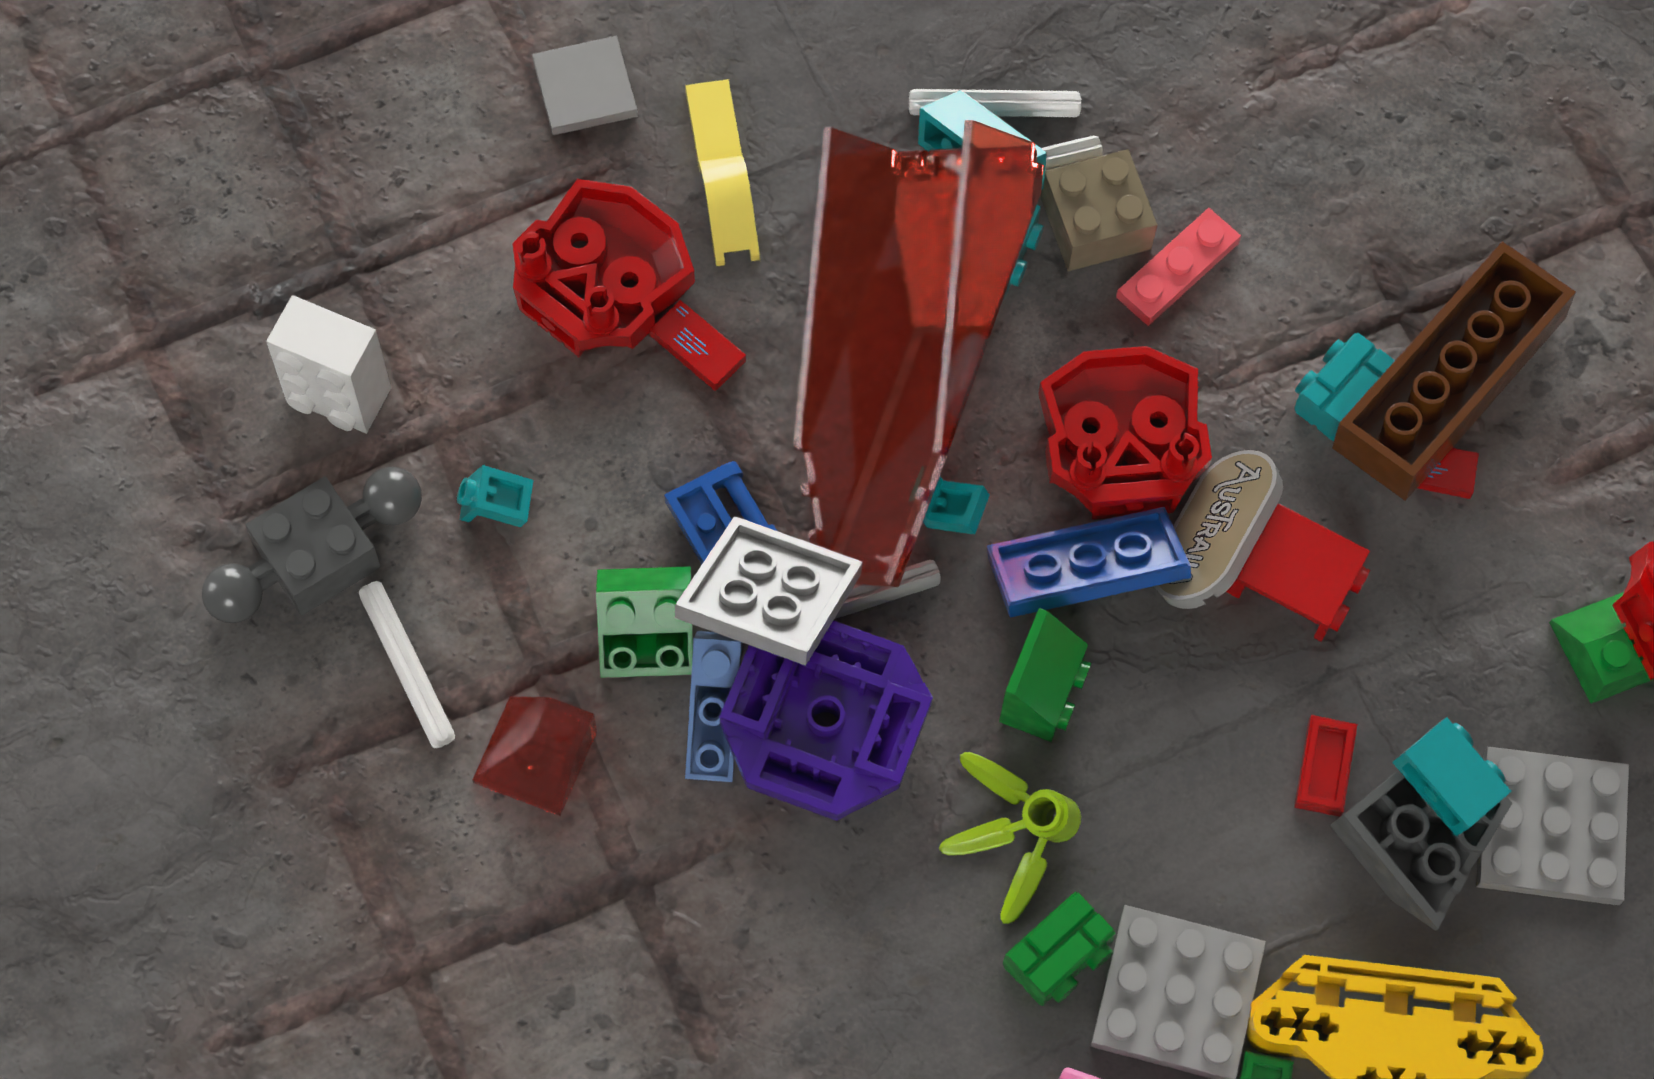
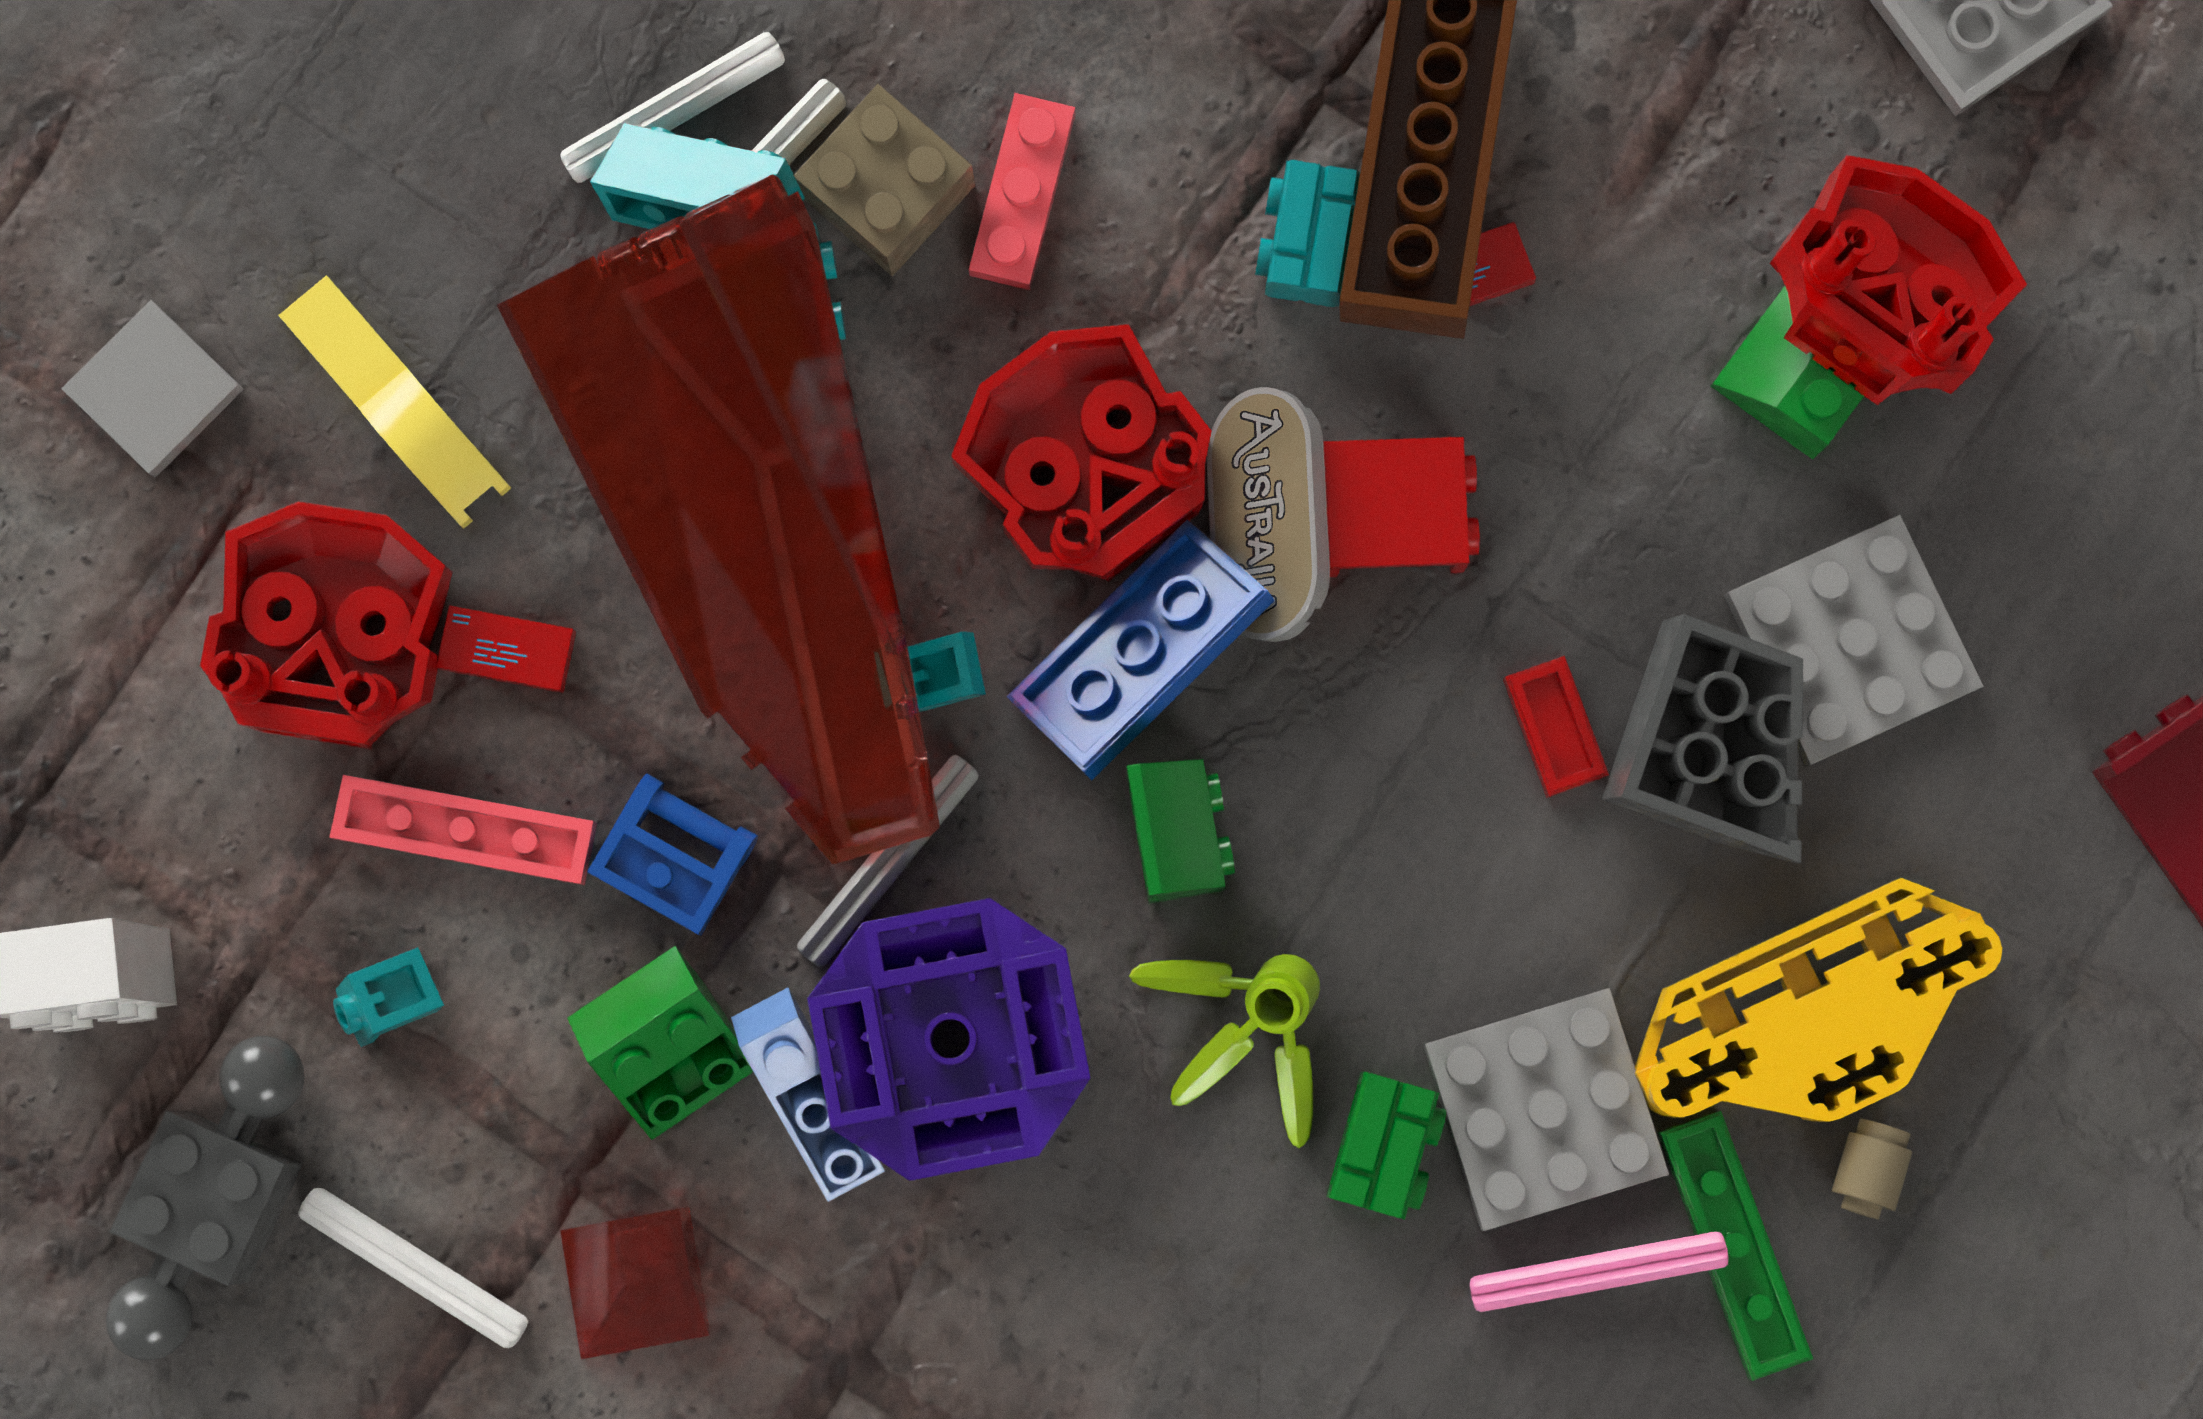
camera: 25 degrees left, 15 degrees up
(605, 430) = (463, 830): none -> coral plate
(769, 590) = (792, 933): plate -> none
(1452, 776) = (1724, 676): teal brick -> none

